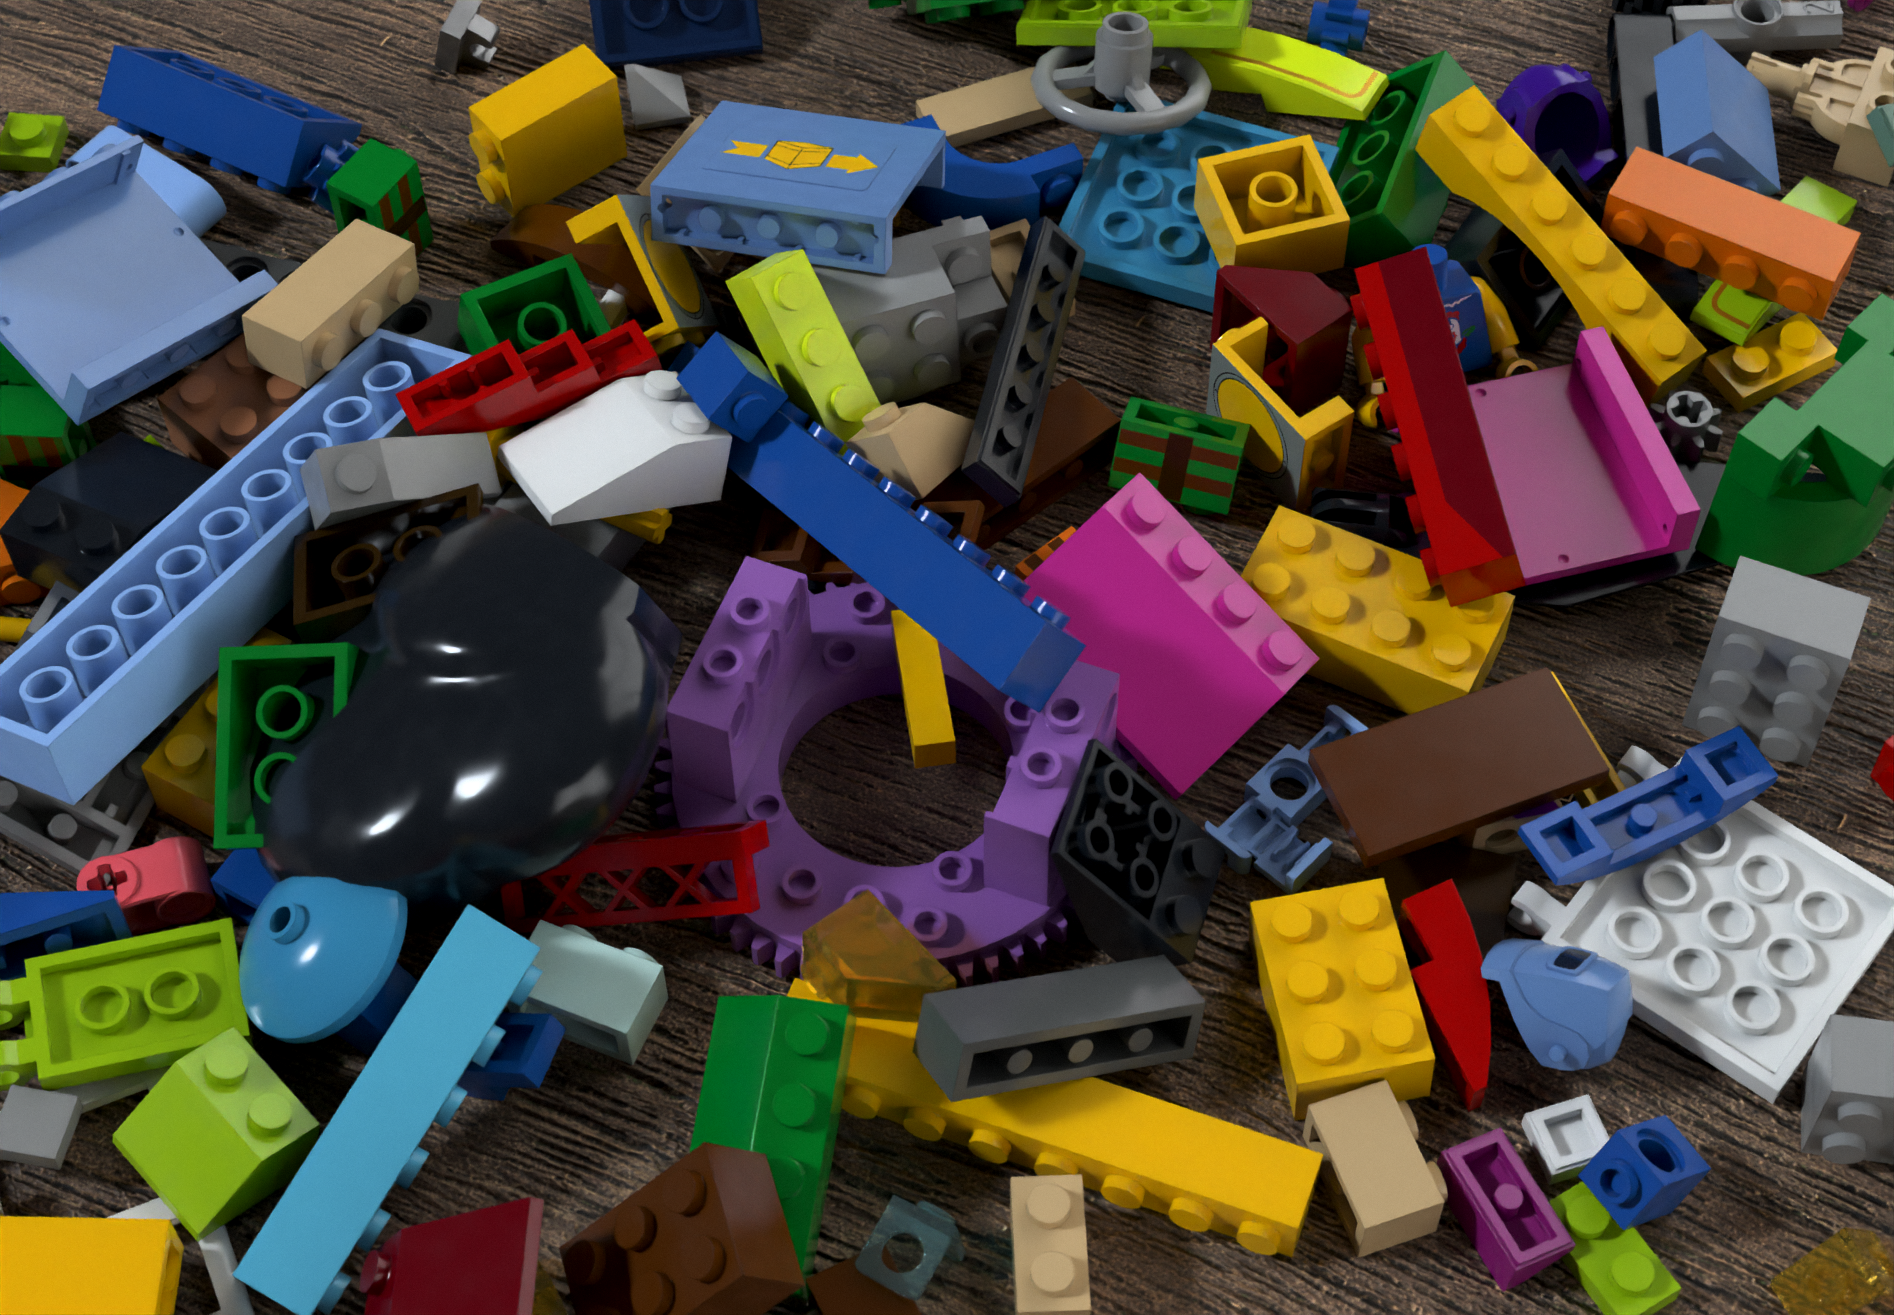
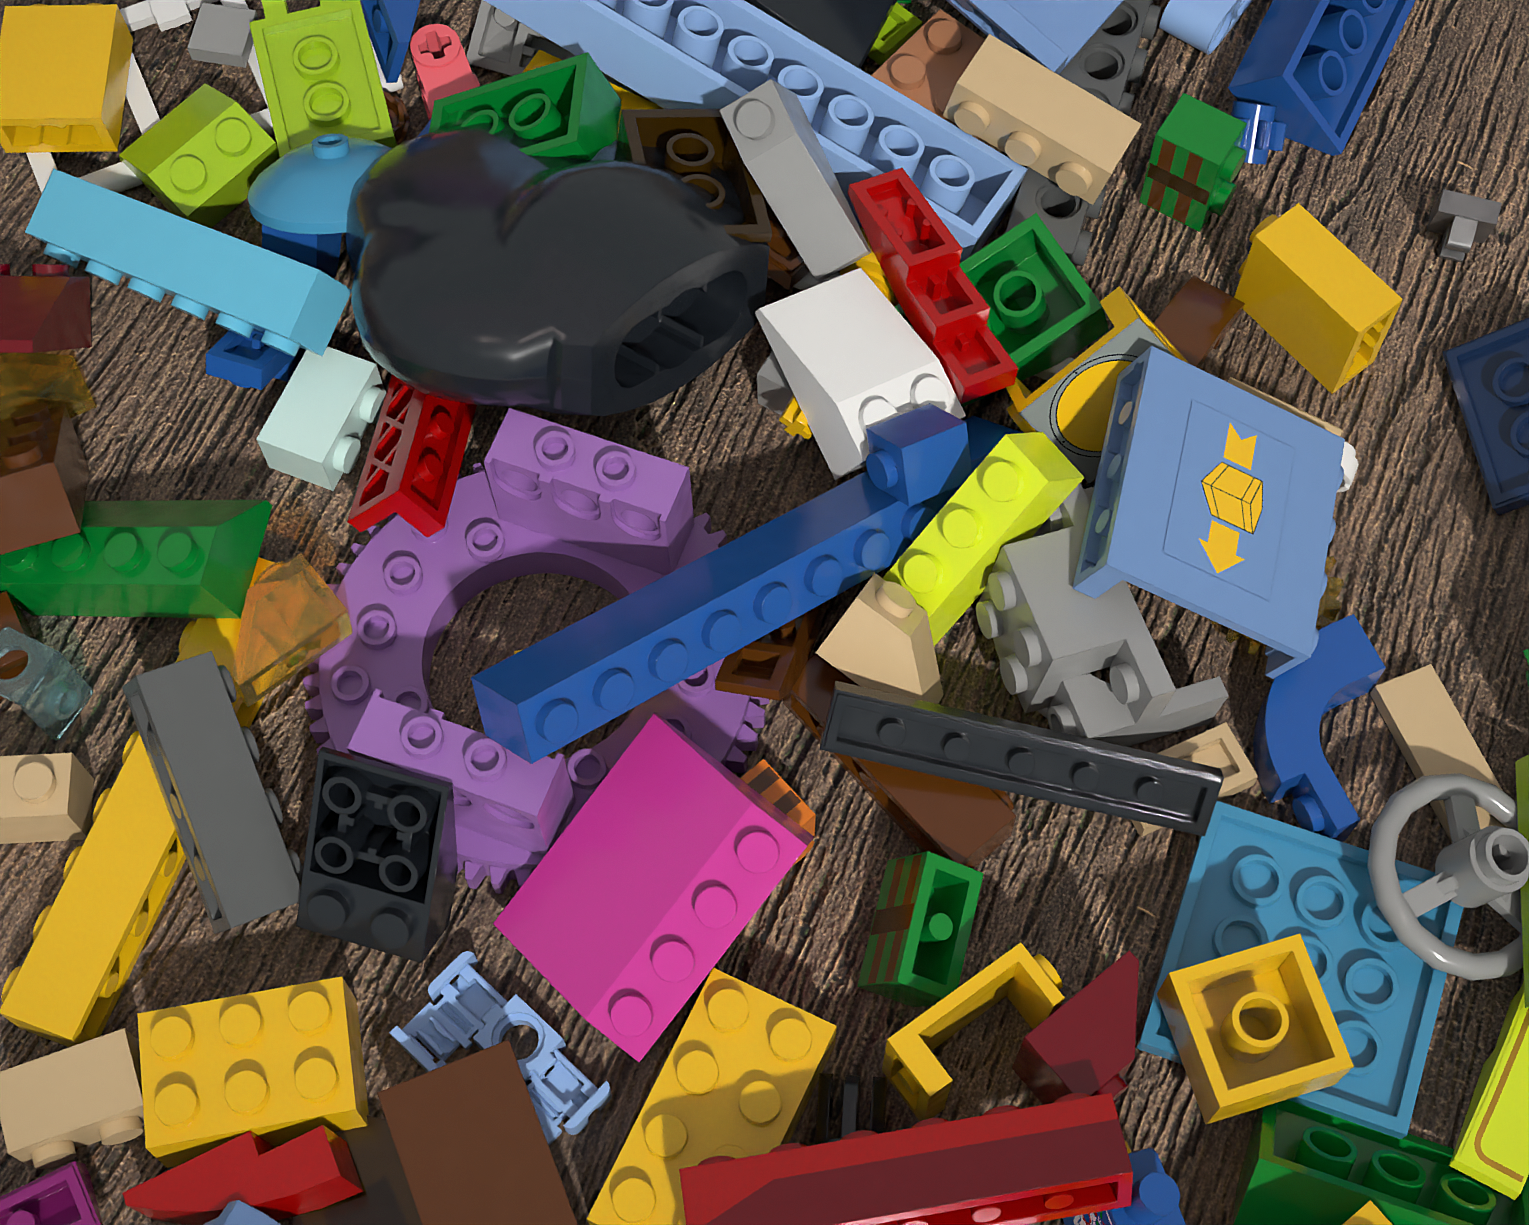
camera: 90 degrees right, 10 degrees up
(656, 97) = (1408, 410): light grey slope -> none

